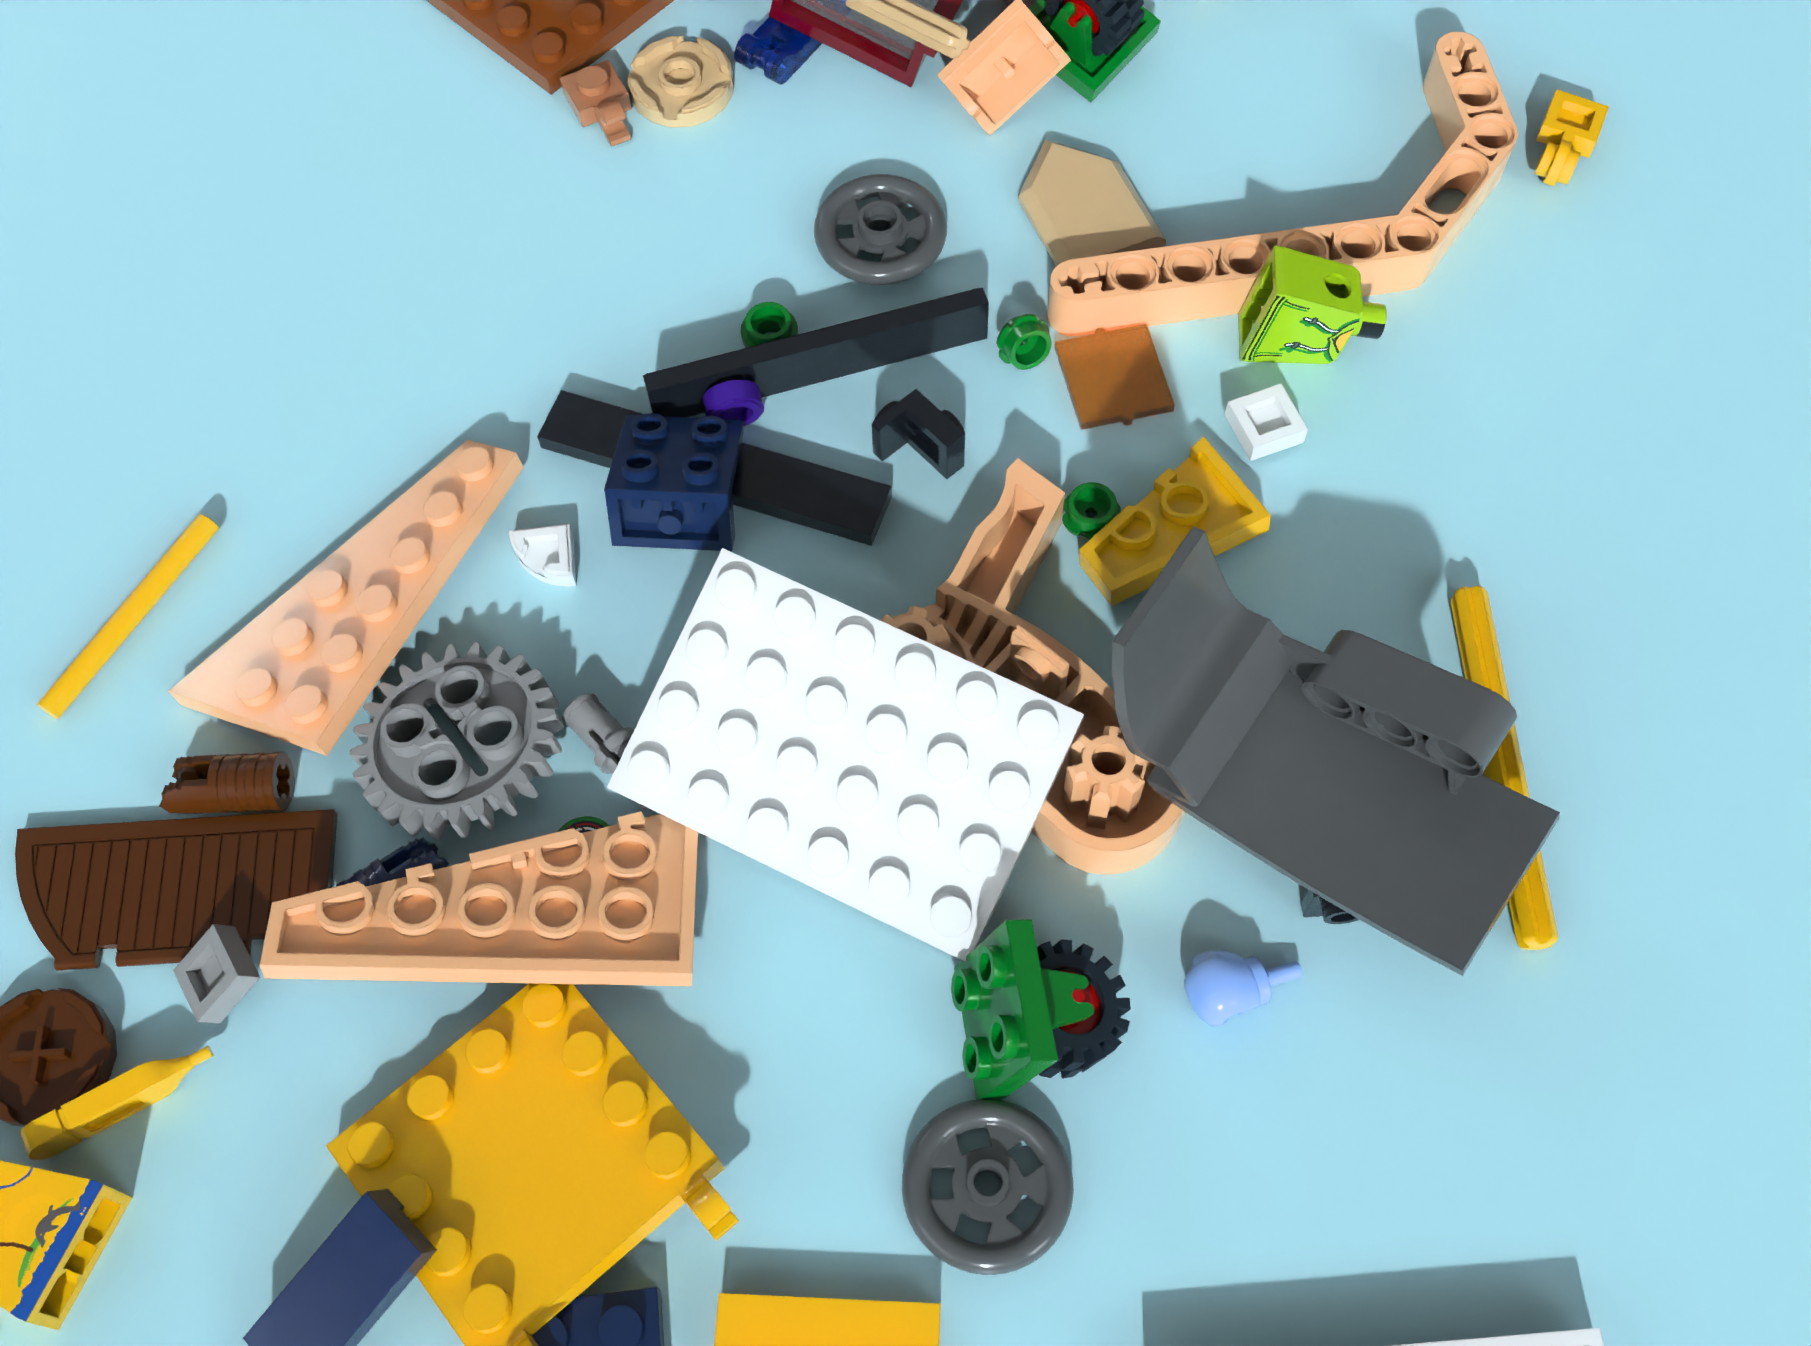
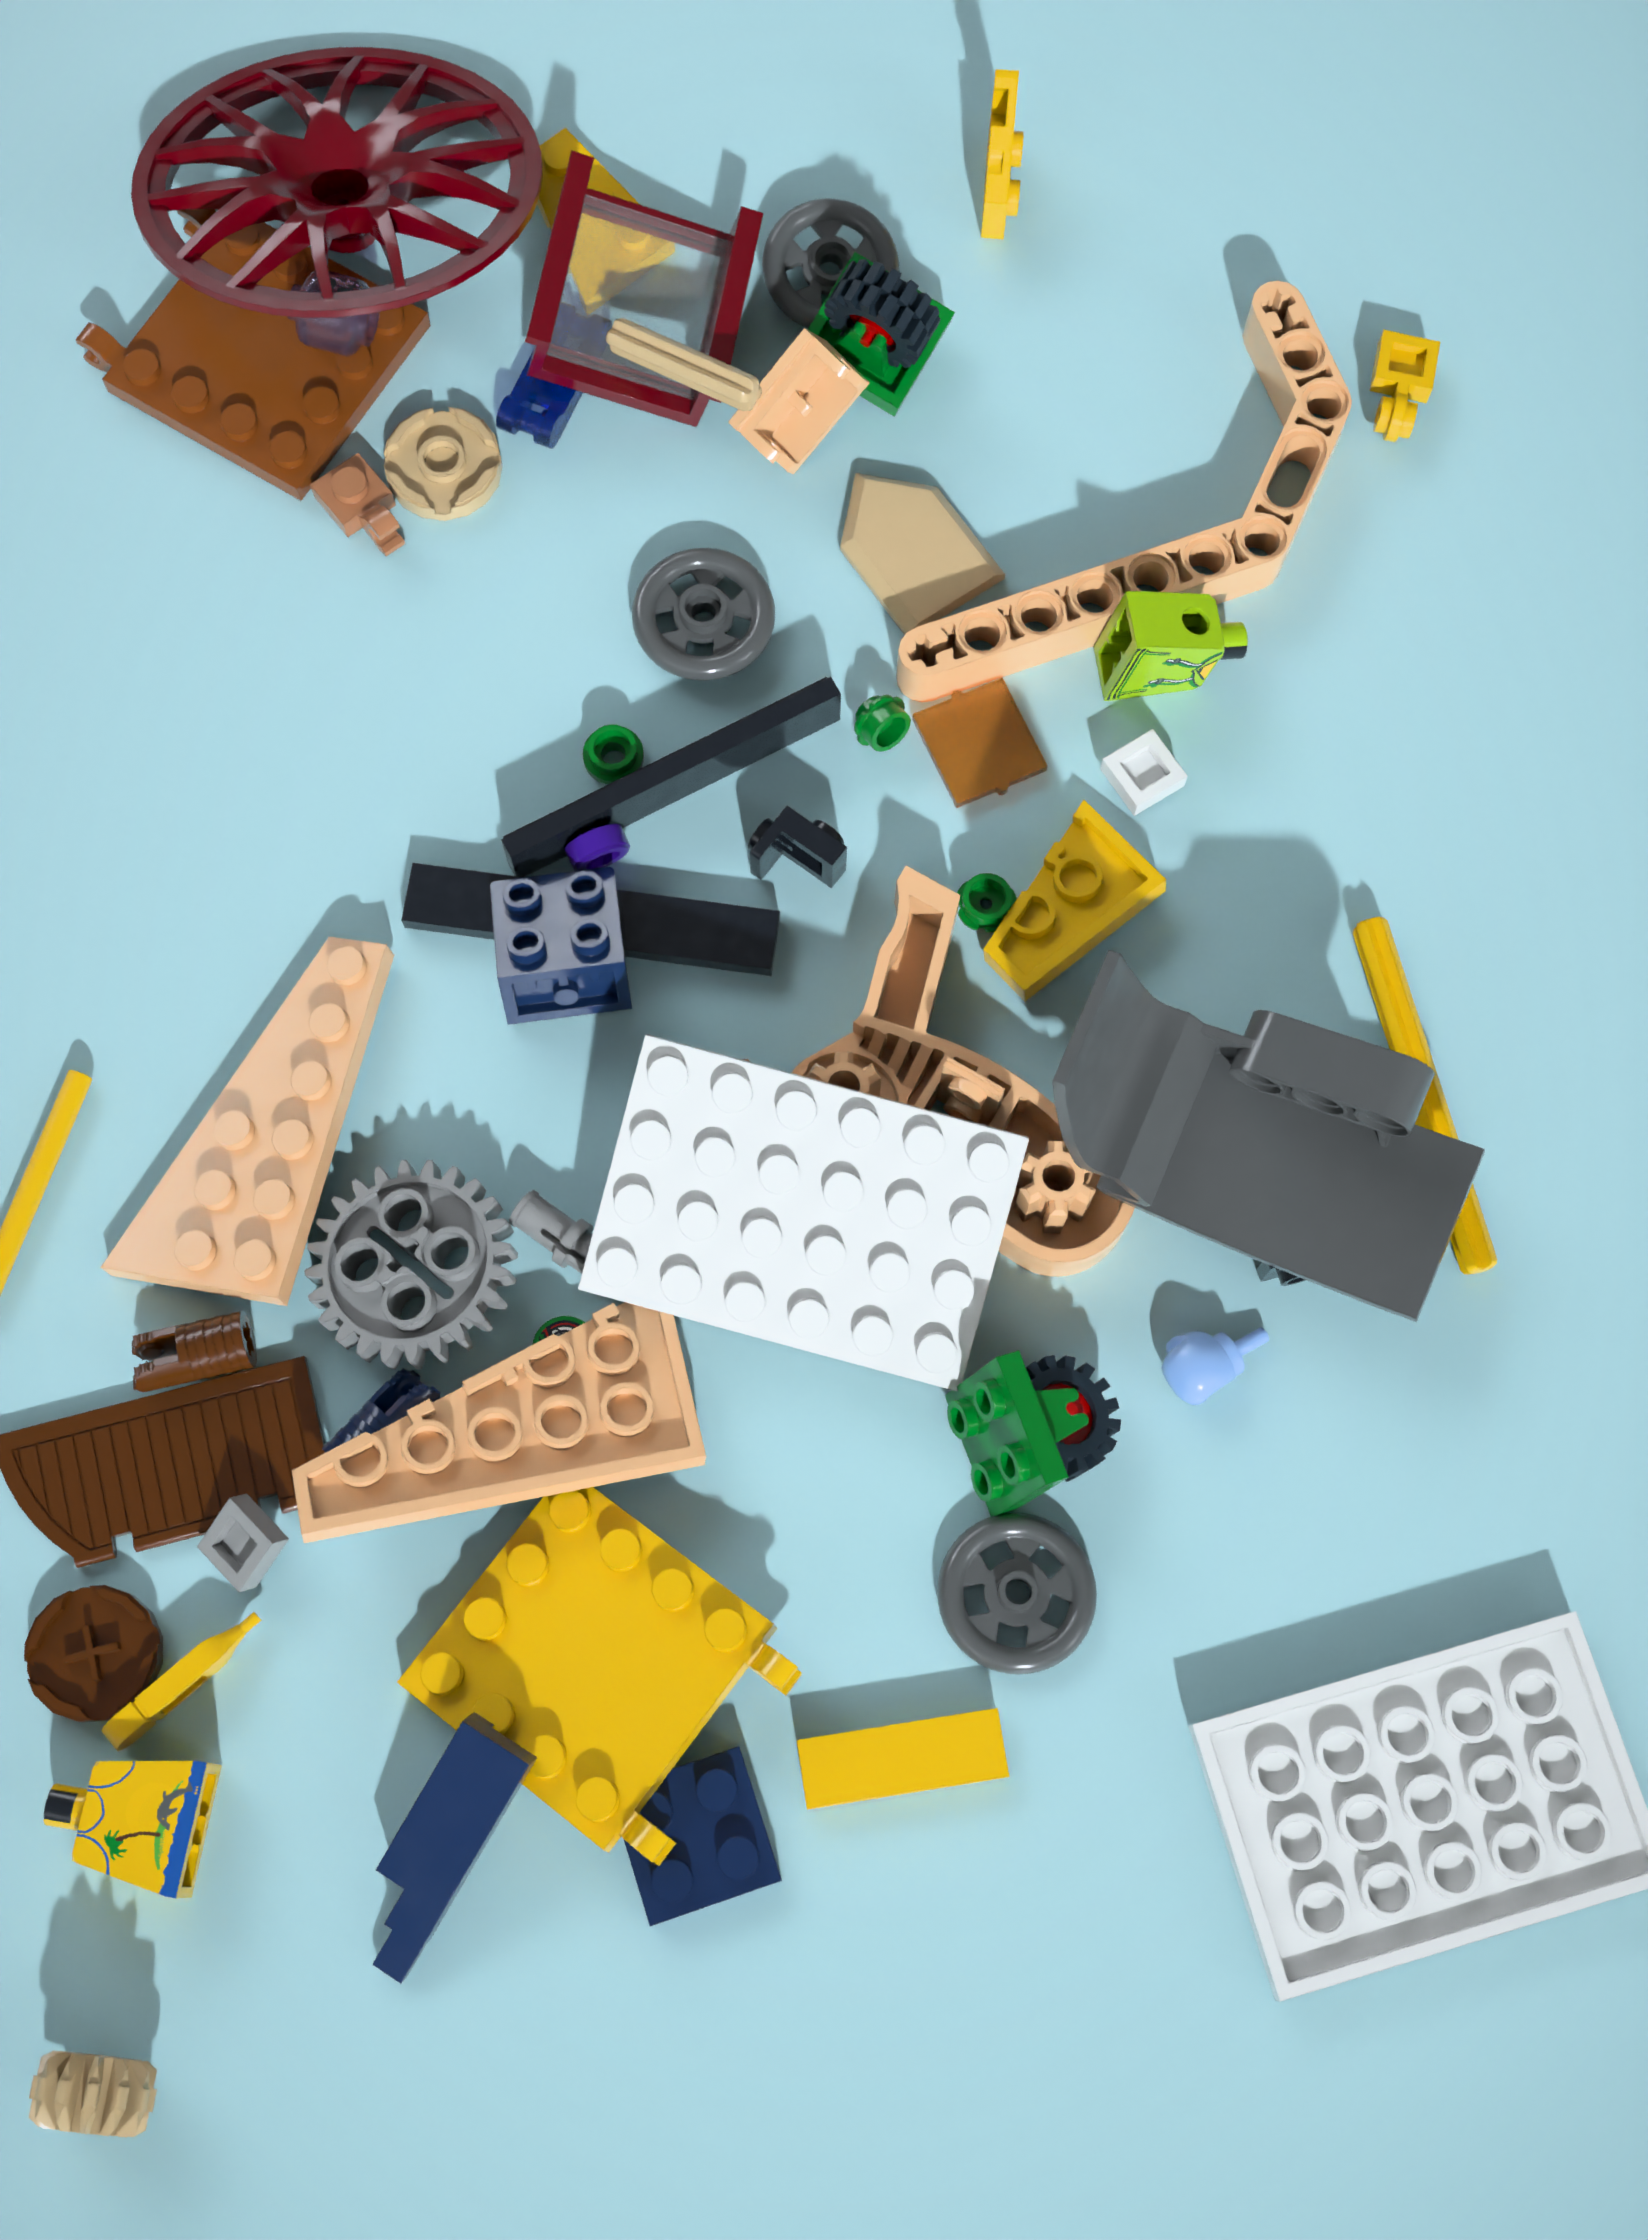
camera: 15 degrees left, 10 degrees up
(546, 553) = (443, 1046): white tile -> none

